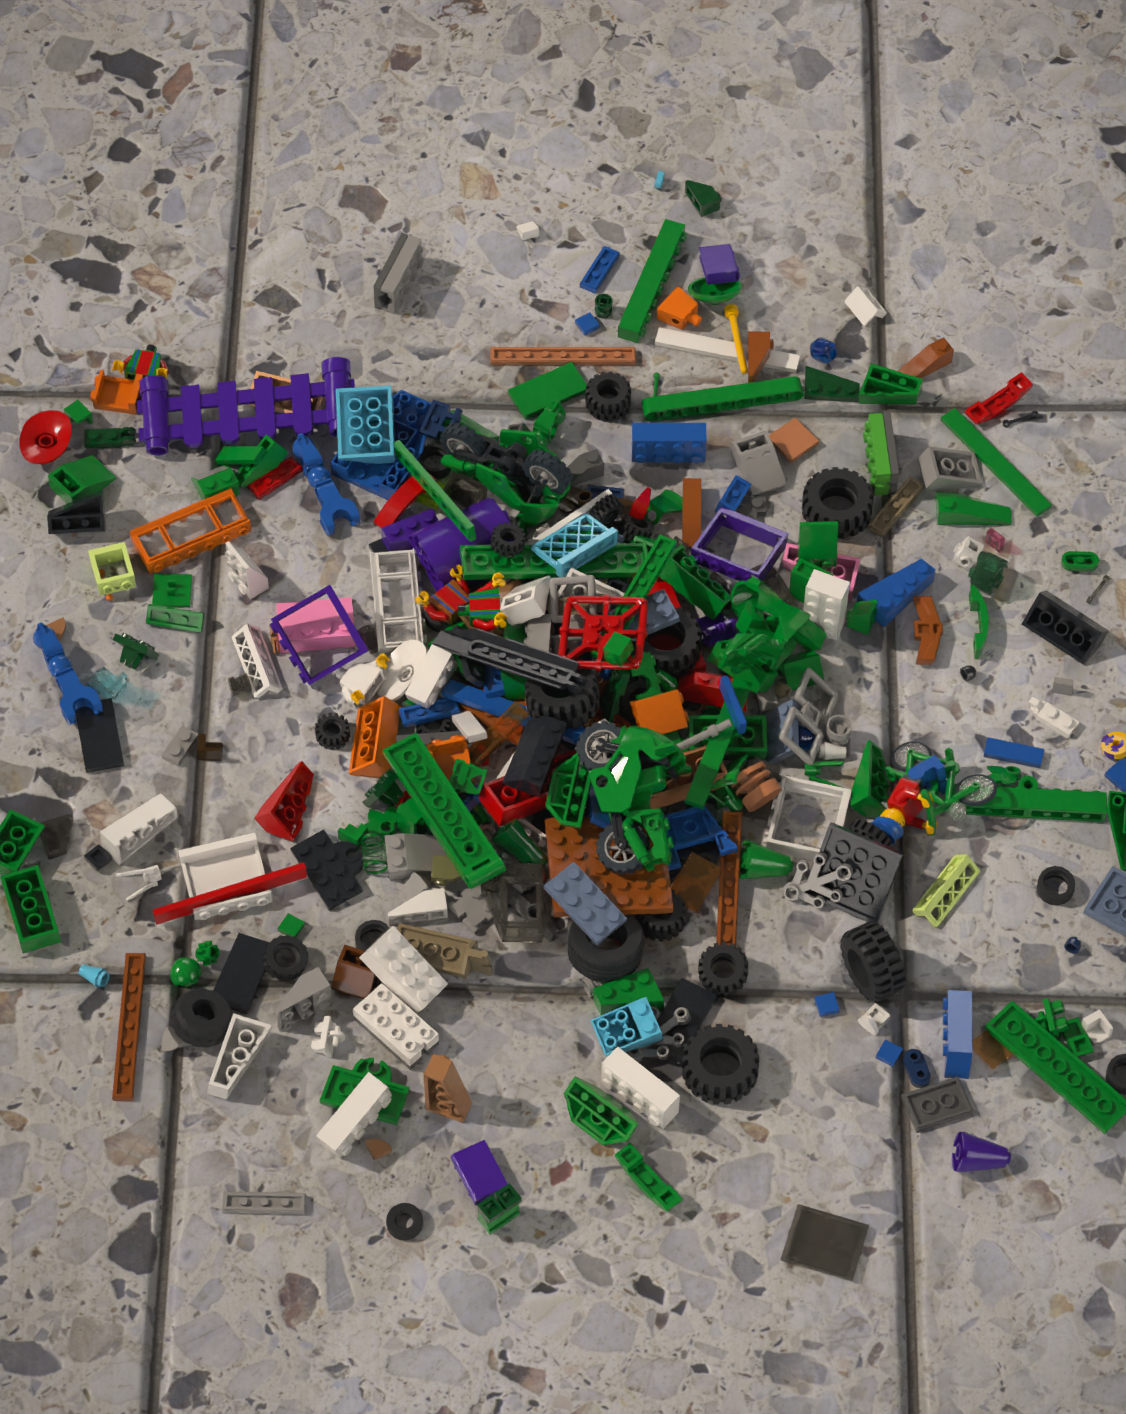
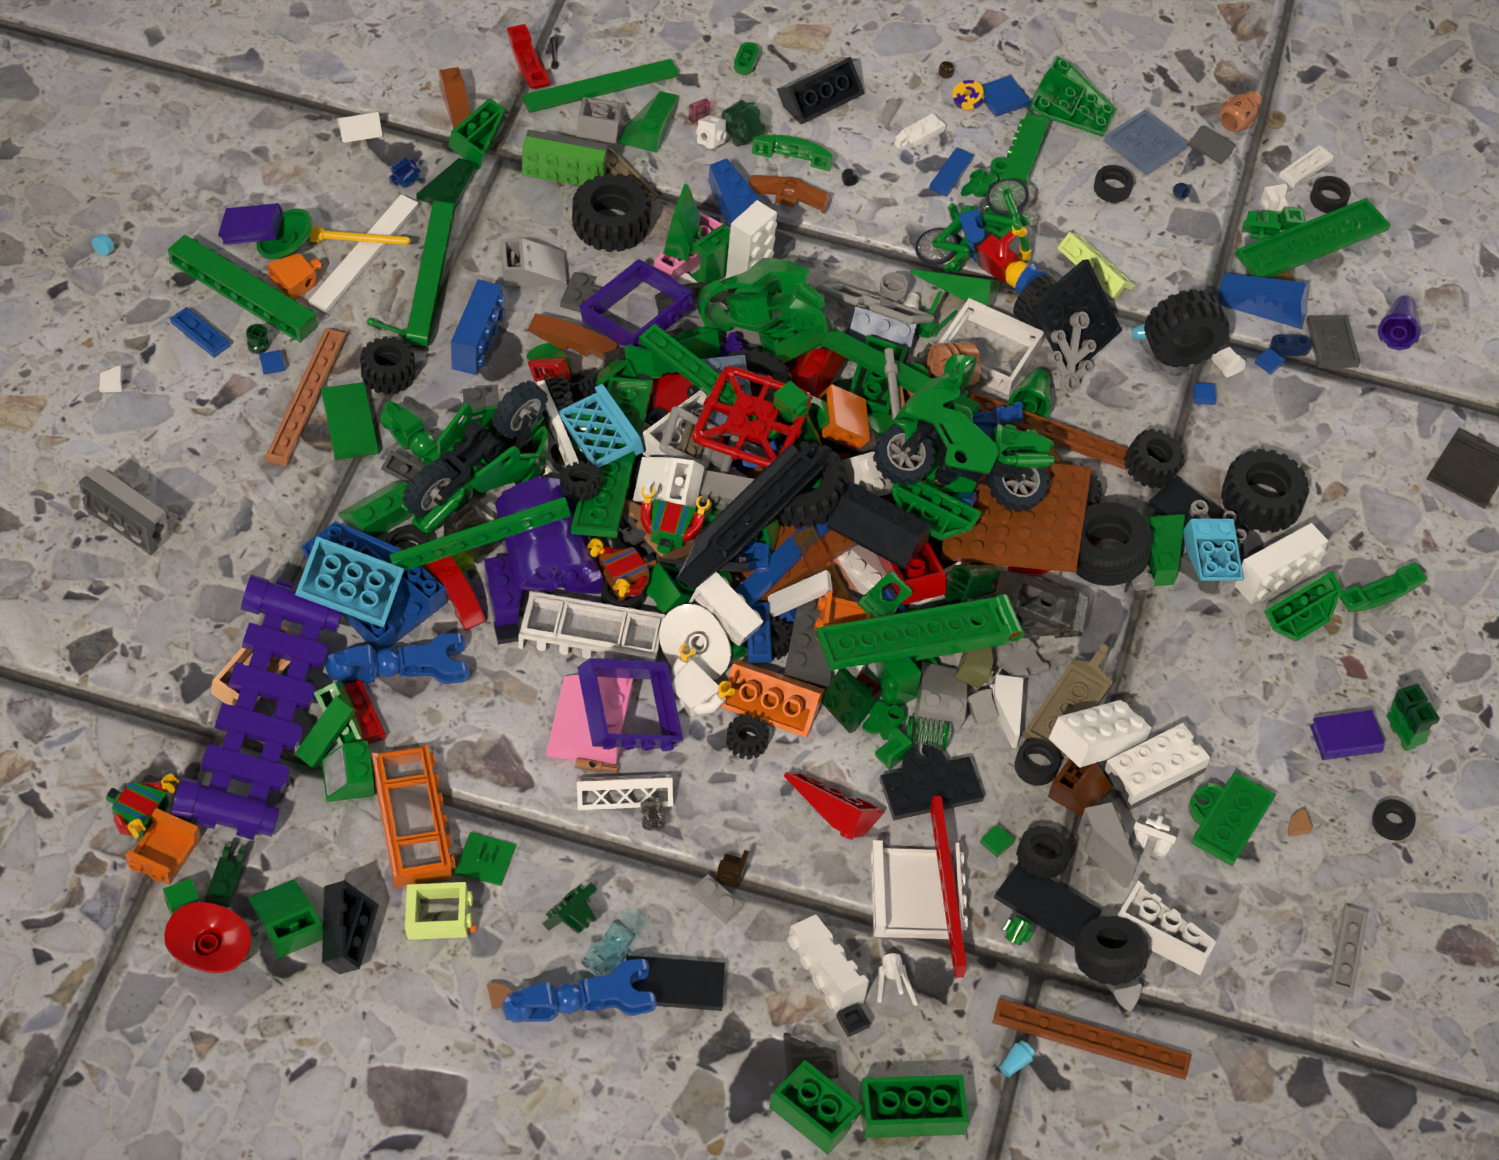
camera: 80 degrees left, 5 degrees down
(175, 618) = (533, 860): green plate -> none
(185, 972) = (1033, 962): green hair -> none
(245, 572) = (502, 766): white slope -> none
(355, 1115) = (1274, 823): white brick -> none
(436, 417) = (367, 518): dark blue plate -> none
(445, 1090) = (1260, 728): medium nougat wedge -> none
(585, 903) = (1076, 533): sand blue plate -> none
(703, 197) = (147, 215): dark green slope -> none
(733, 704) = (863, 344): blue tile -> none
(734, 494) = (563, 296): blue panel -> none
(758, 352) = (387, 220): dark orange slope -> none
(793, 440) = (505, 227): nougat tile -> none

